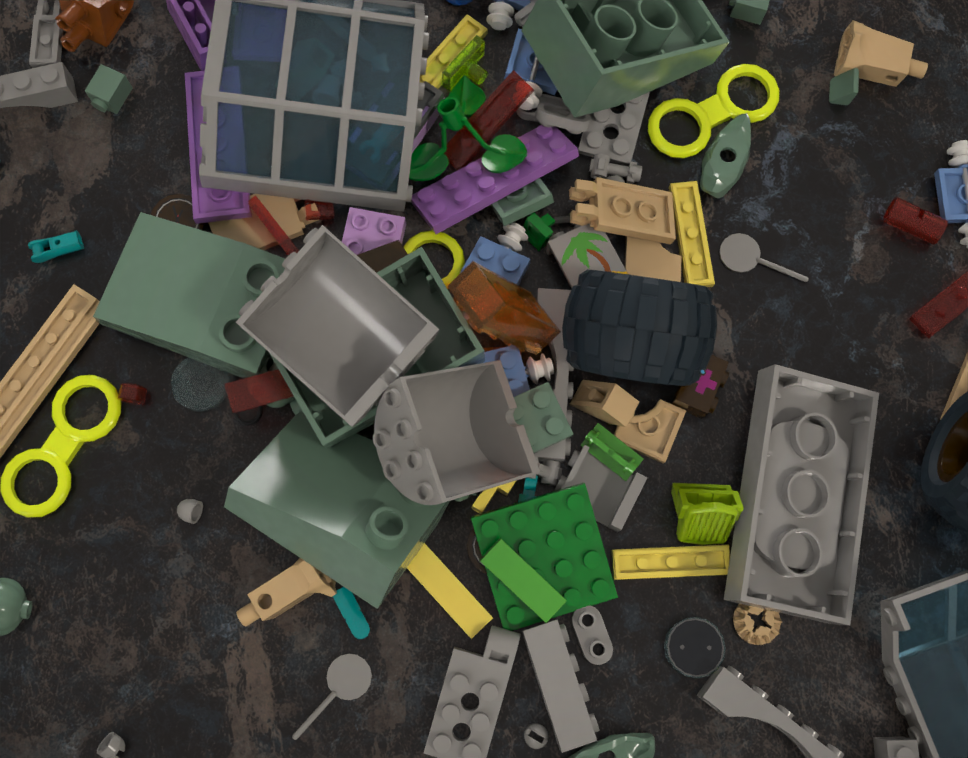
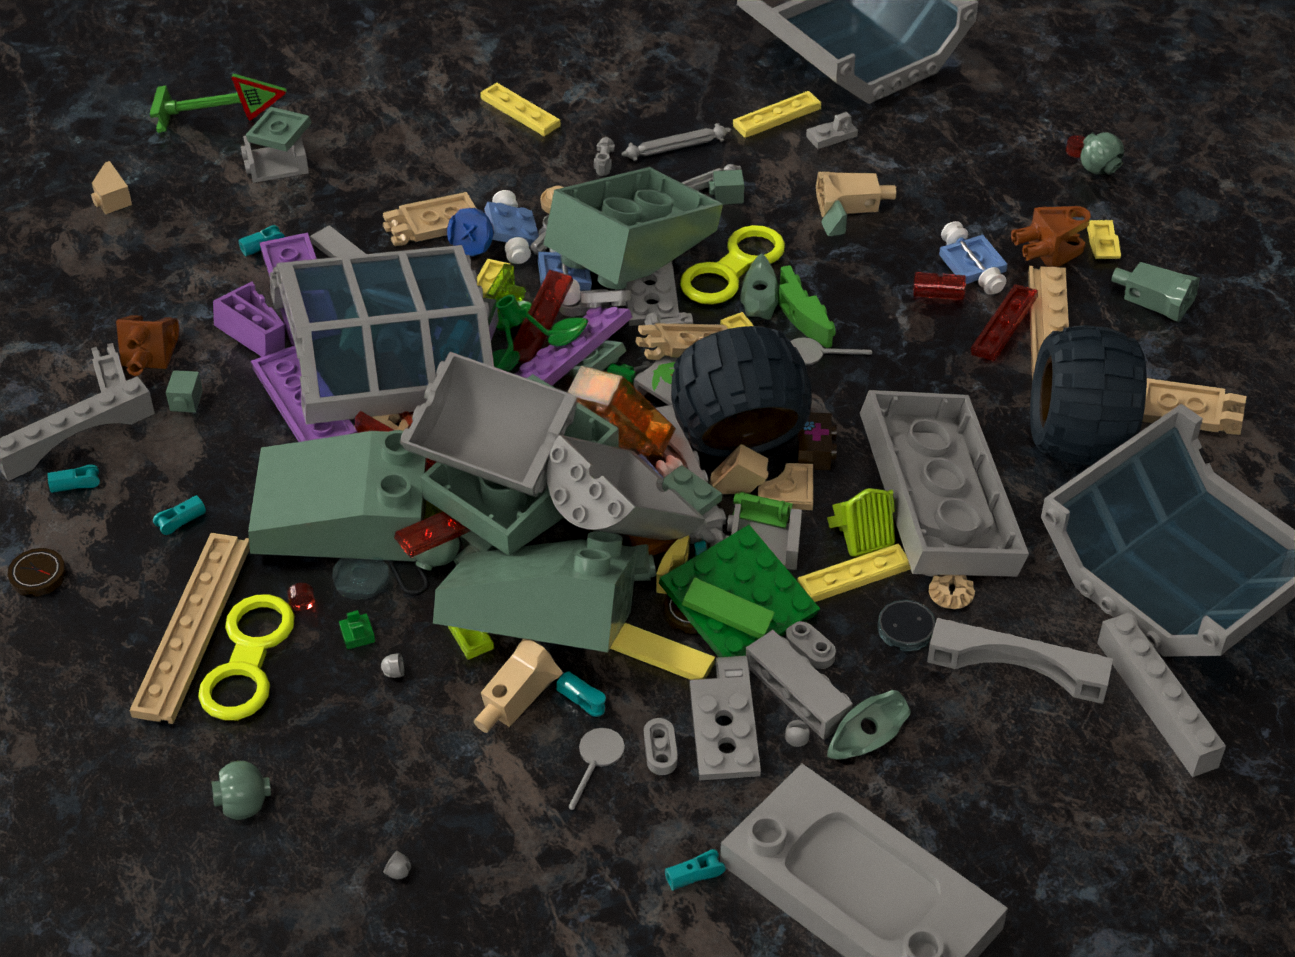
camera: 15 degrees left, 30 degrees down
(172, 452) = (356, 630): none -> green tile
(400, 704) = (661, 748): none -> light grey plate
(759, 205) = (804, 311): none -> bright green slope

